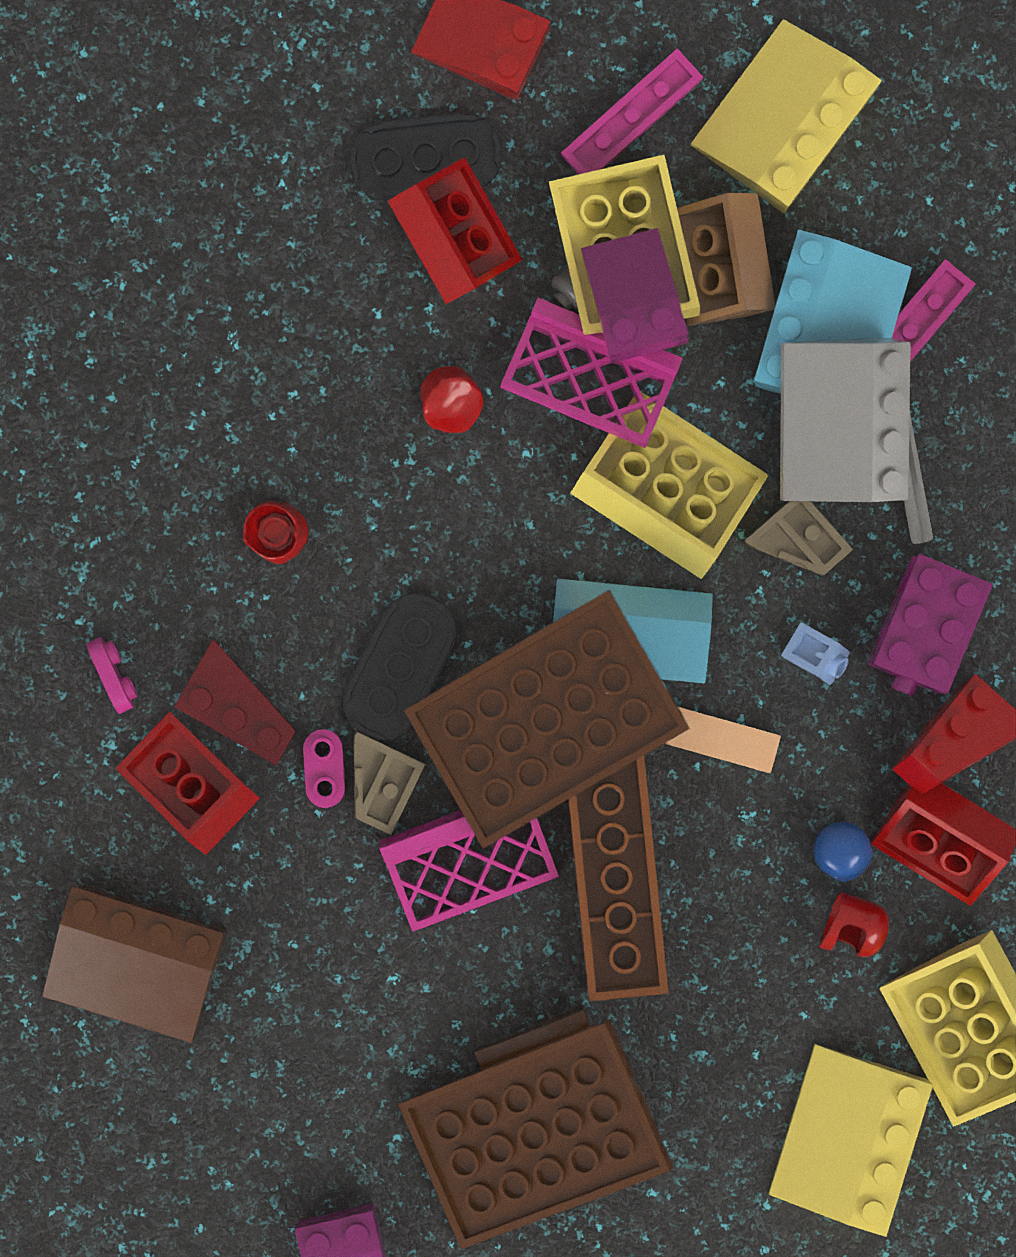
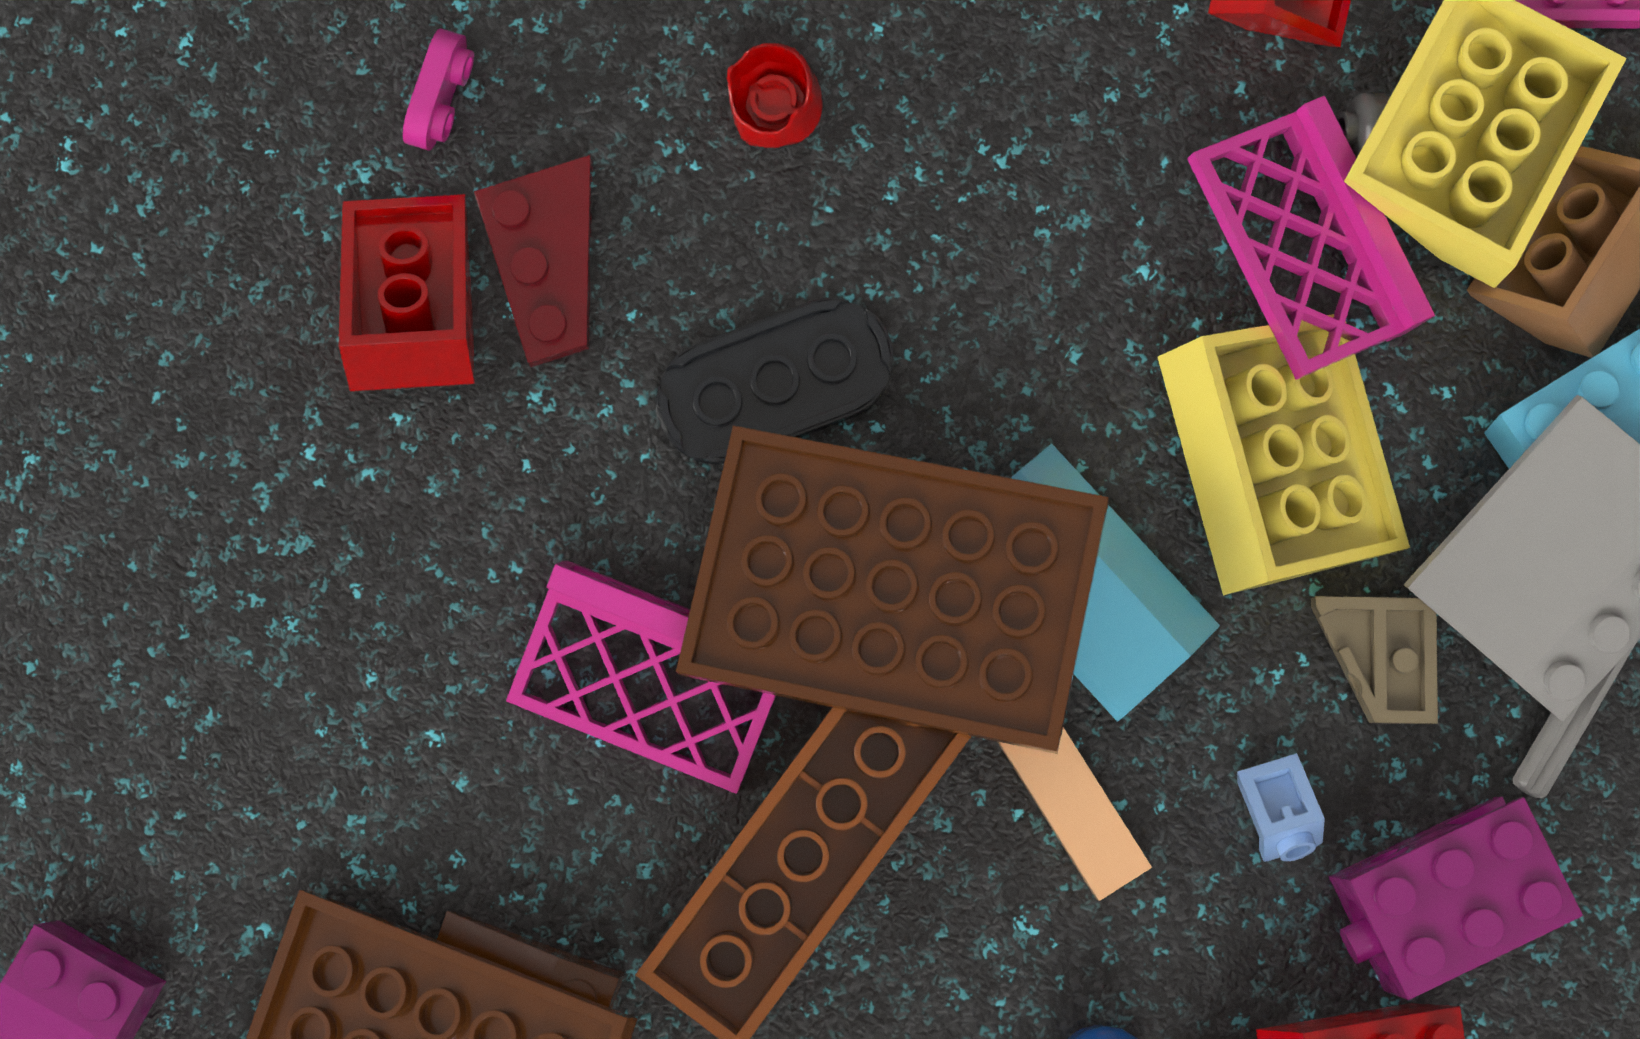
camera: 45 degrees right, 5 degrees down
(133, 962) = (154, 439): reddish brown slope -> none
(324, 768) = (584, 421): dark pink plate -> none
(382, 782) = (631, 493): dark tan wing -> none
(450, 400) = (1113, 128): red hair -> none
(635, 295) = (1449, 187): magenta slope -> none

